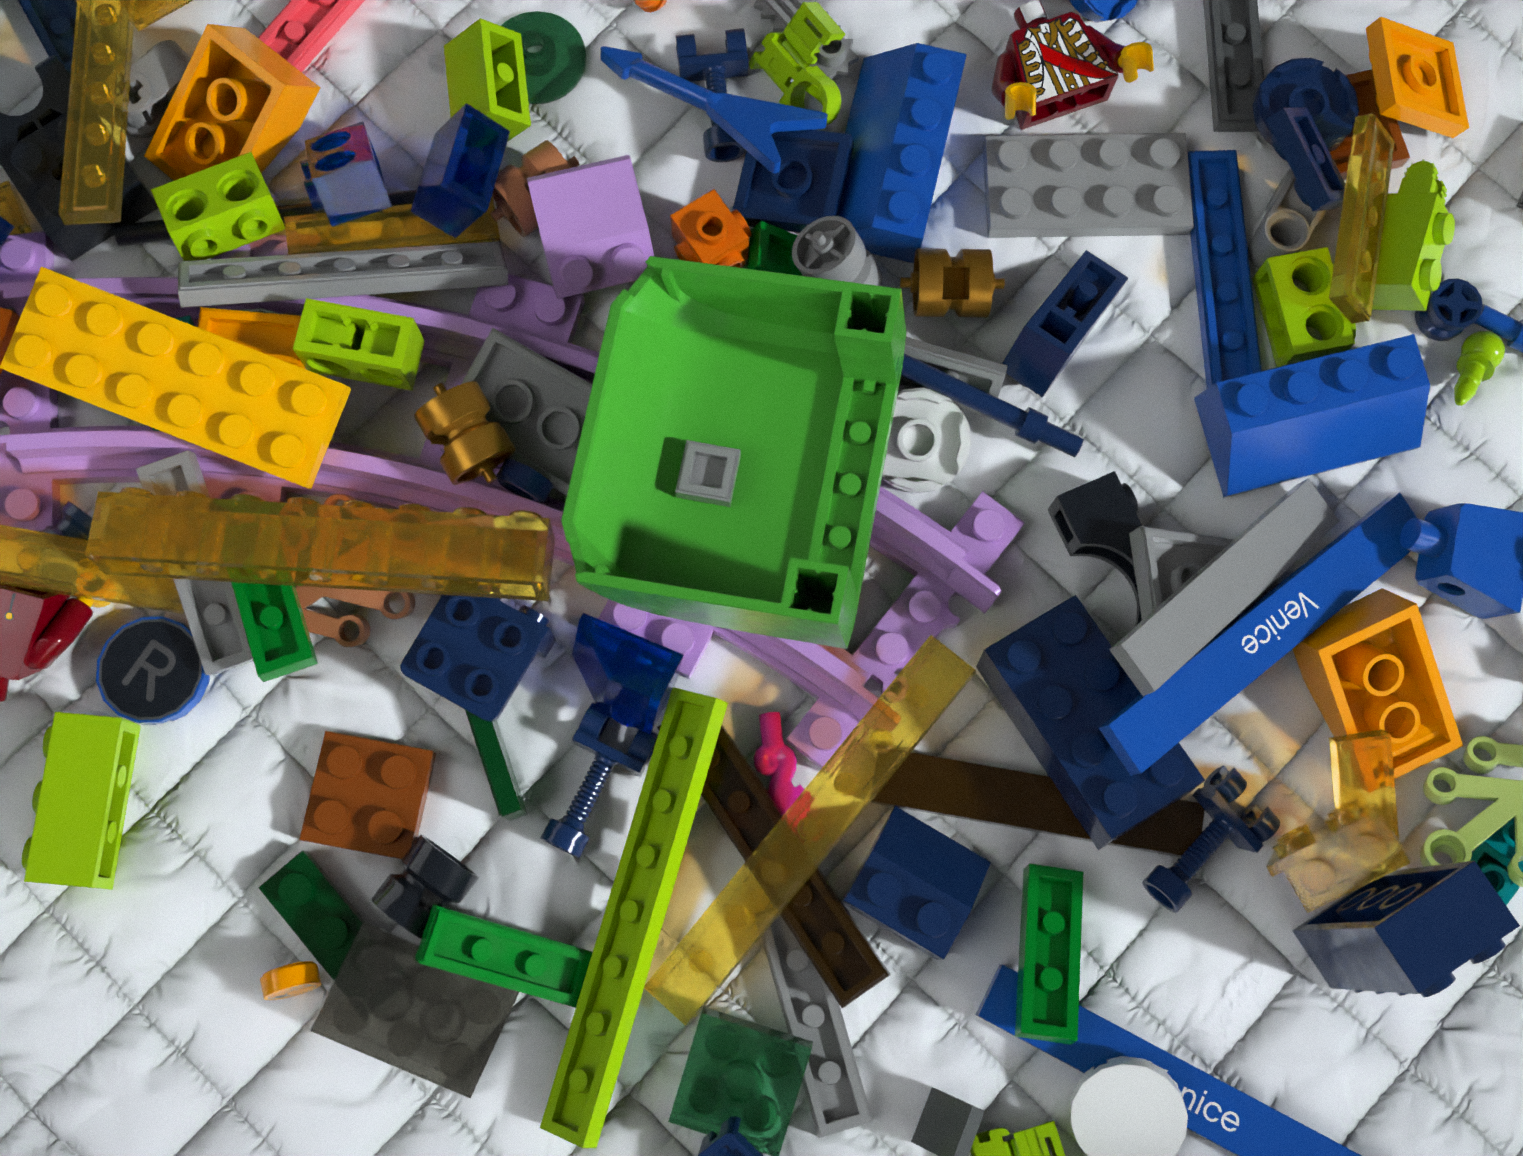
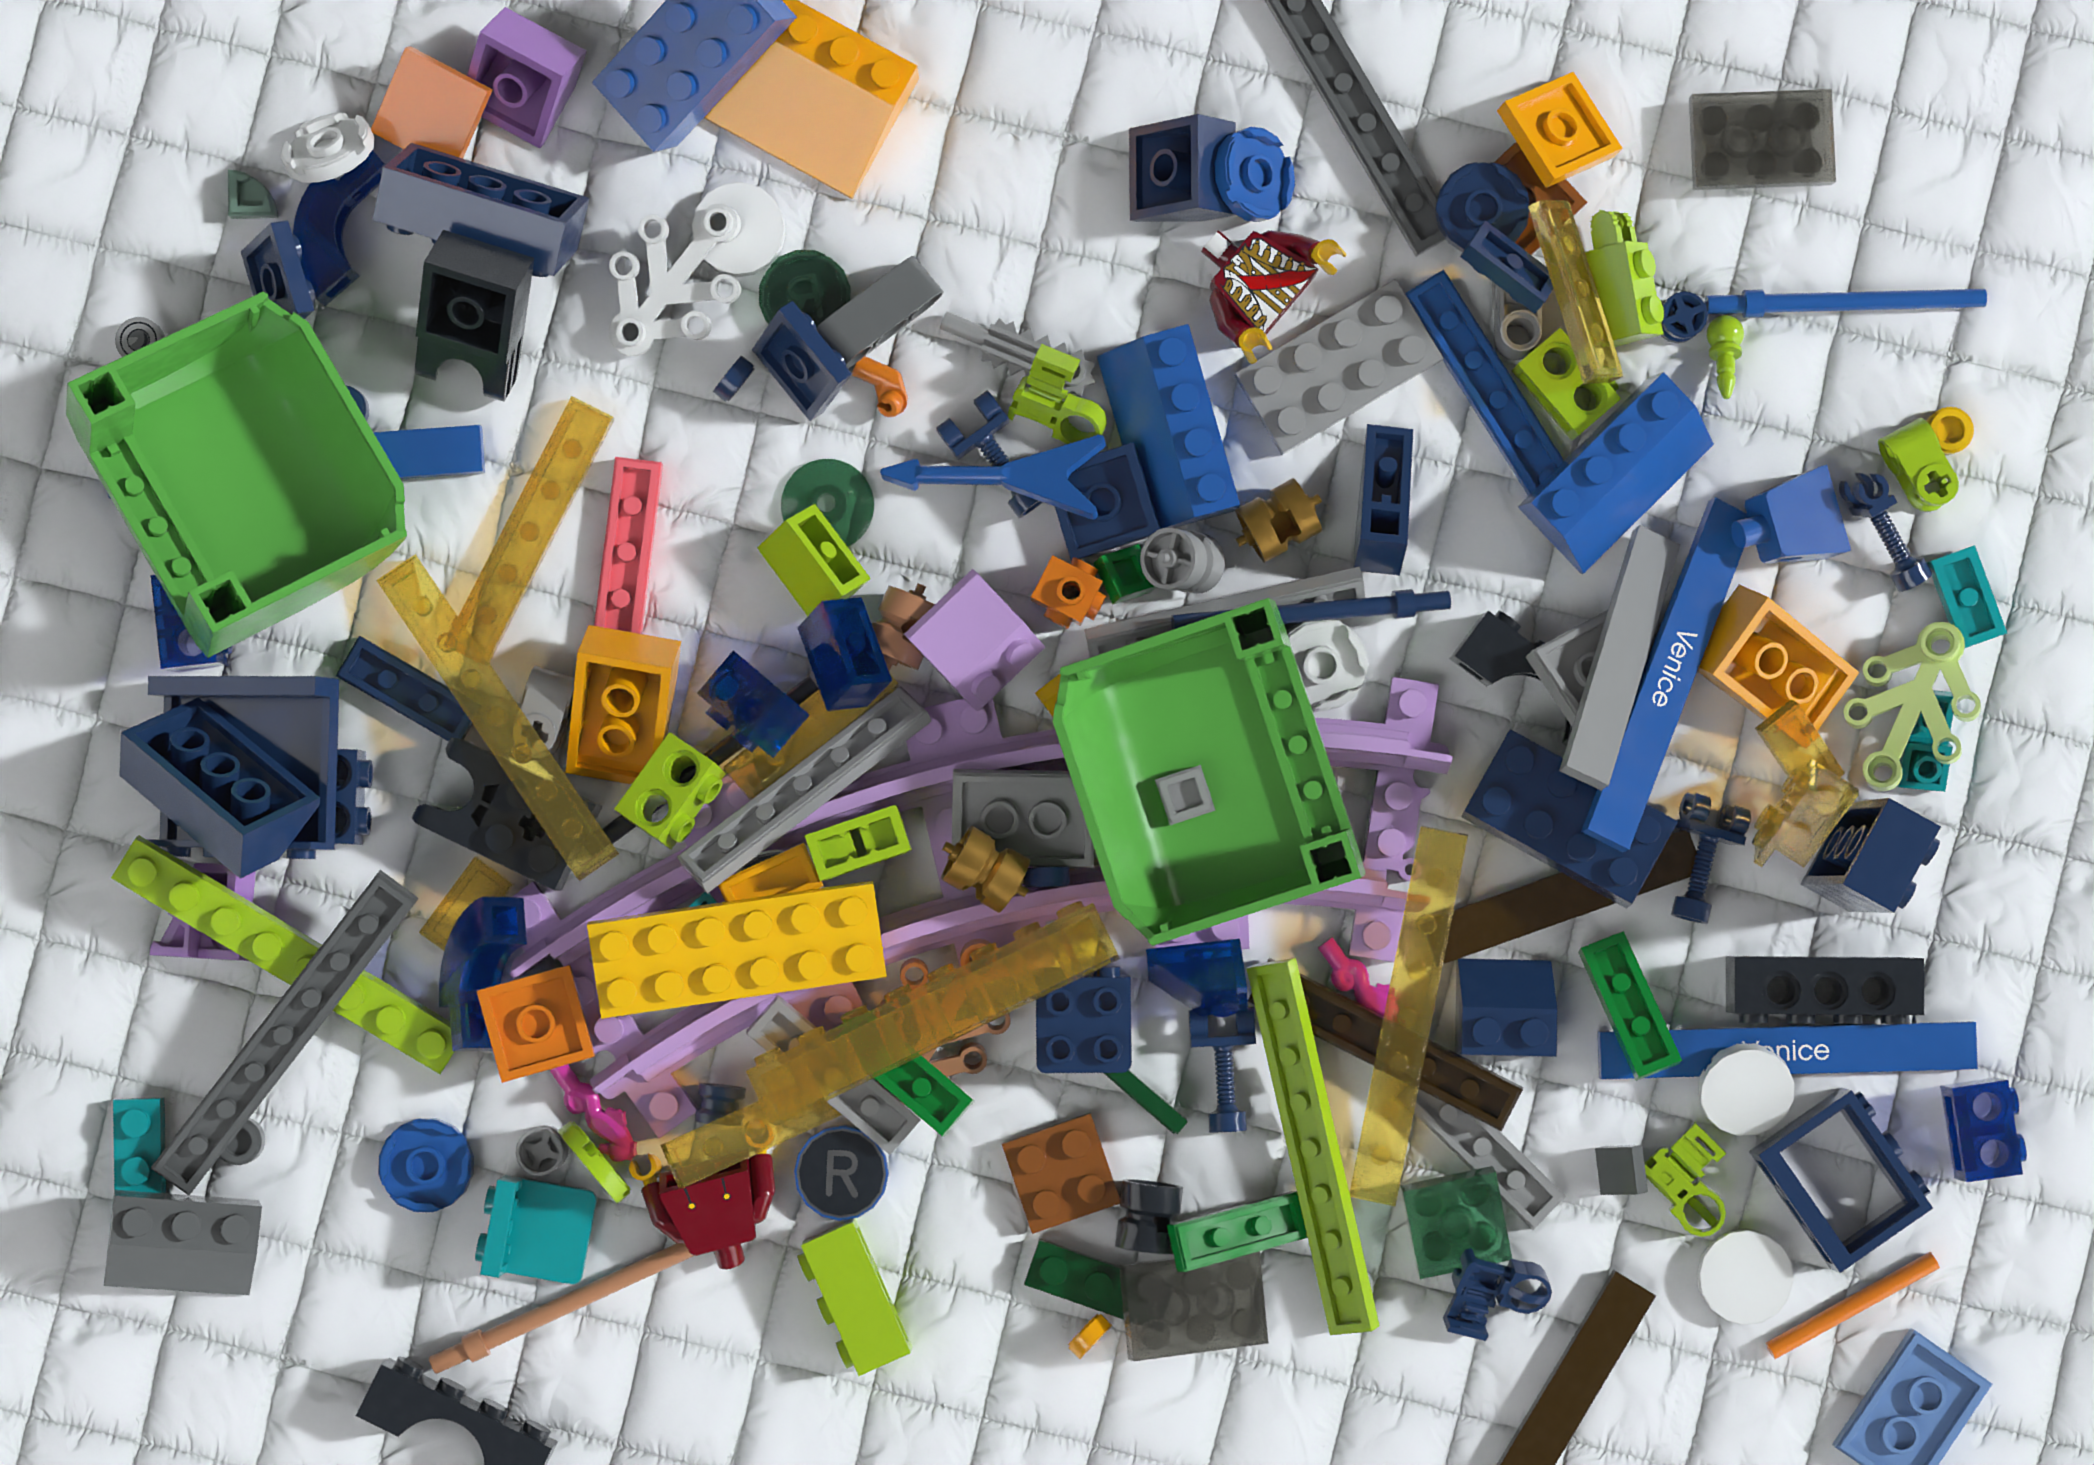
camera: 30 degrees left, 10 degrees up
(1354, 1088) = (1899, 980): none -> black brick

